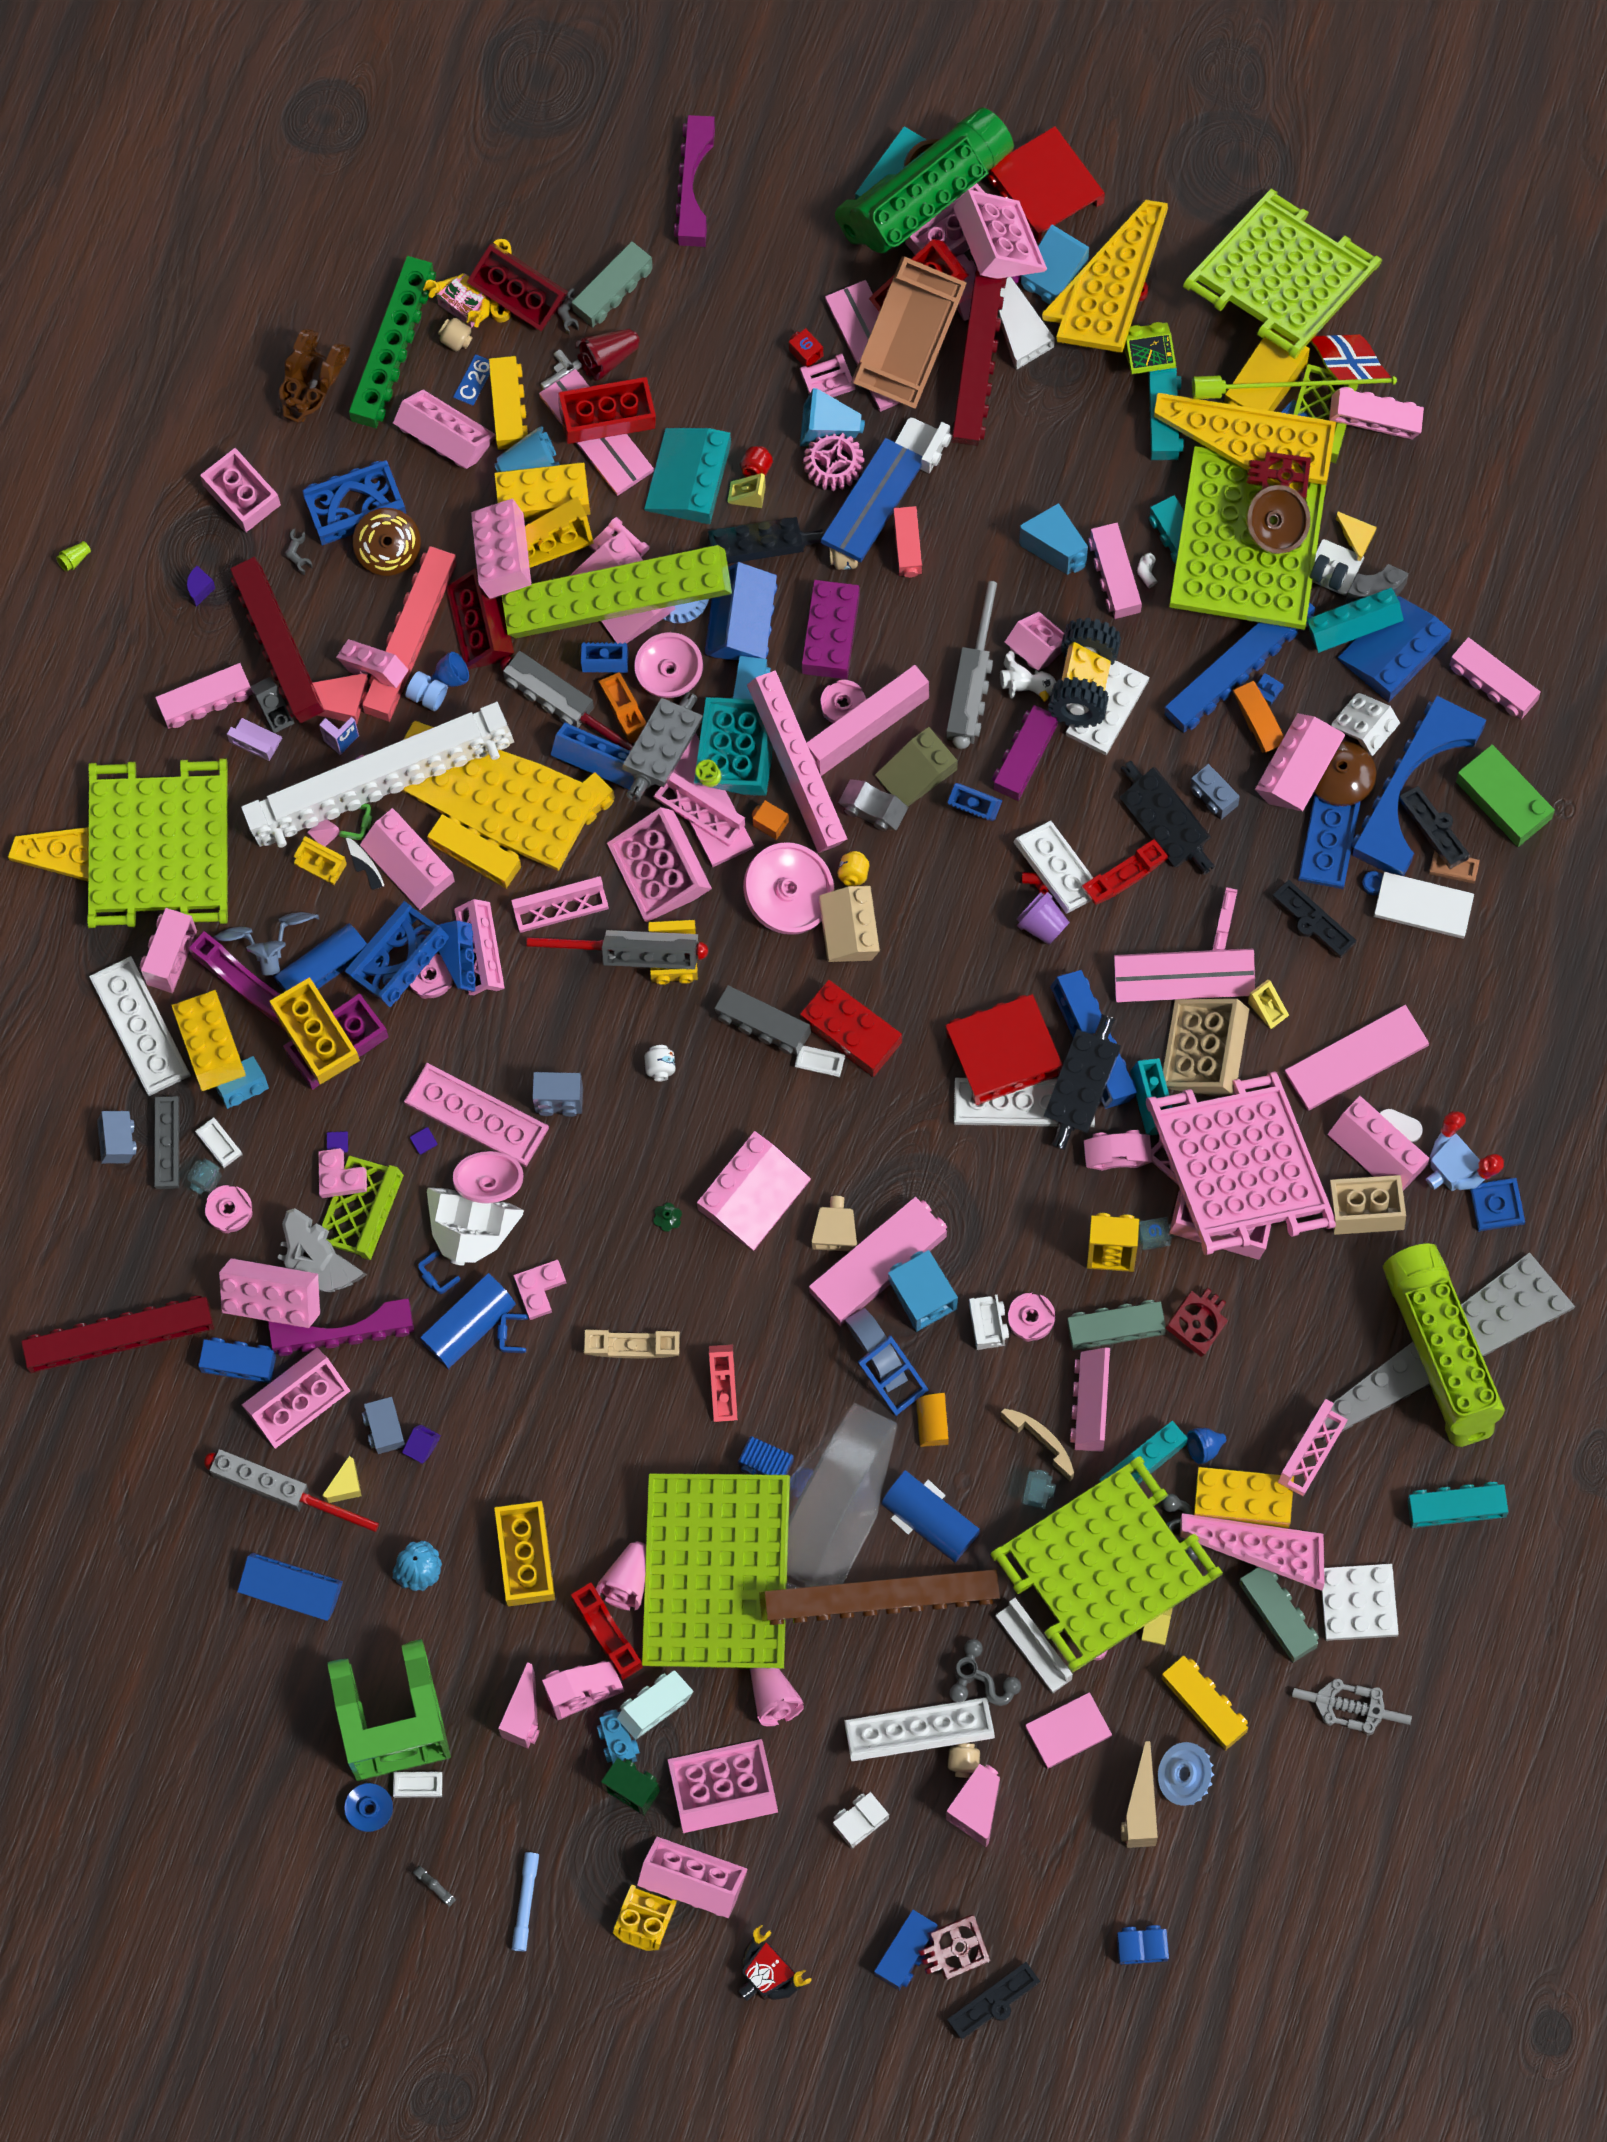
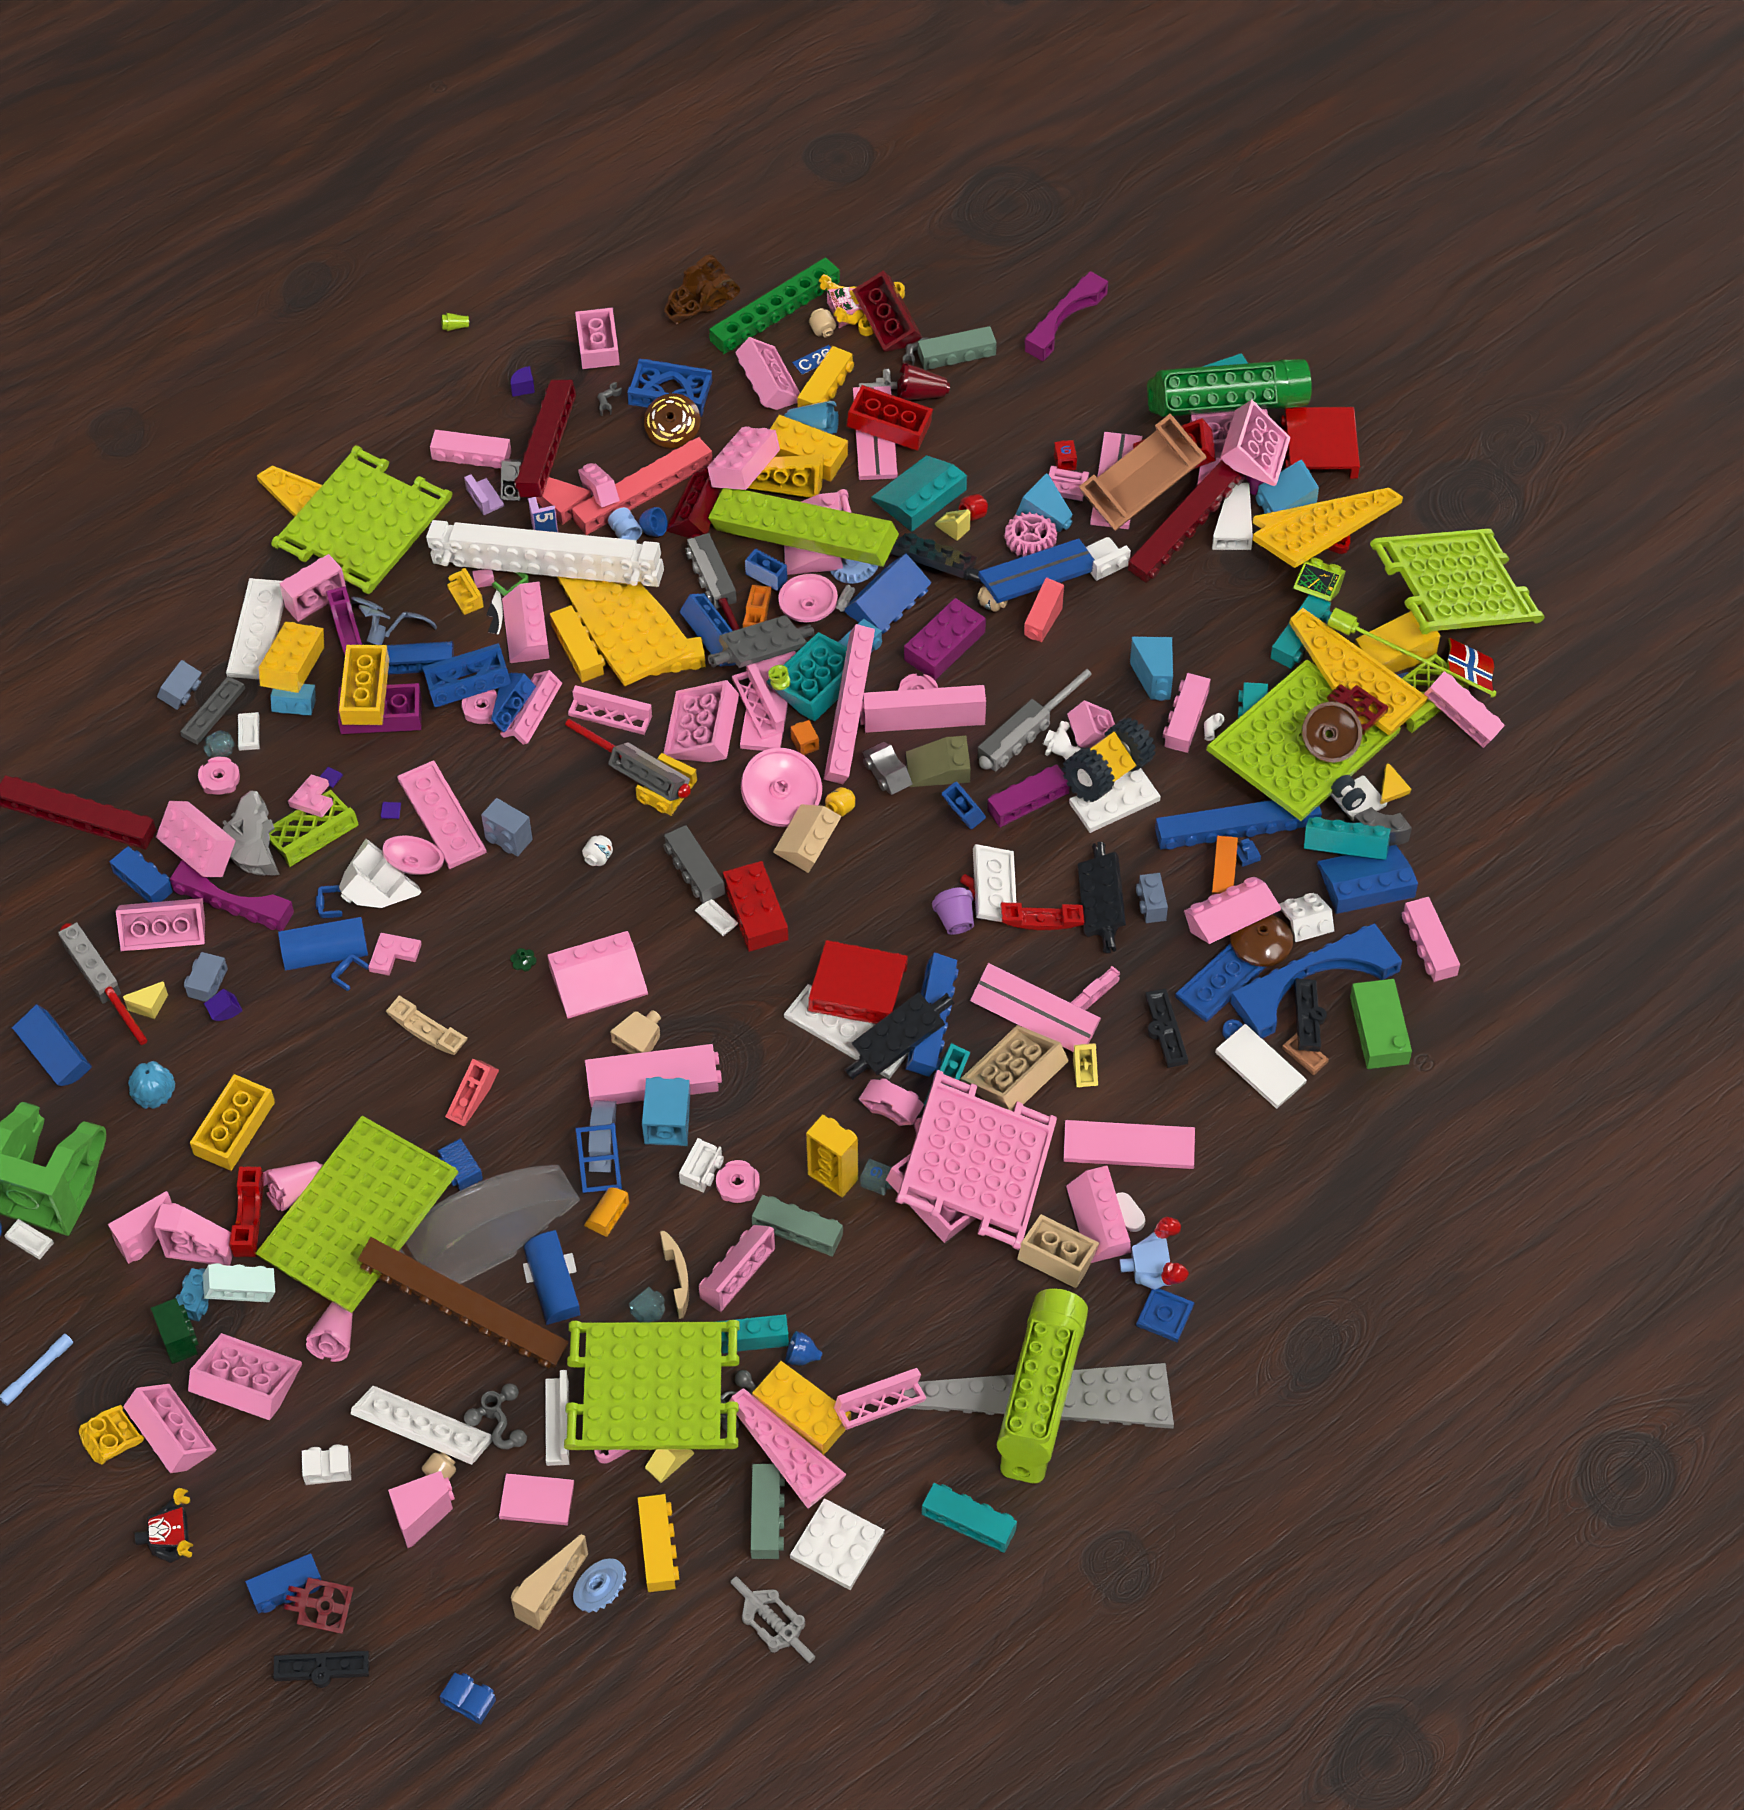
camera: 30 degrees right, 15 degrees down
(702, 641) = (845, 598): none -> light grey axle
(1207, 1307) = (878, 1254): dark red piece -> none

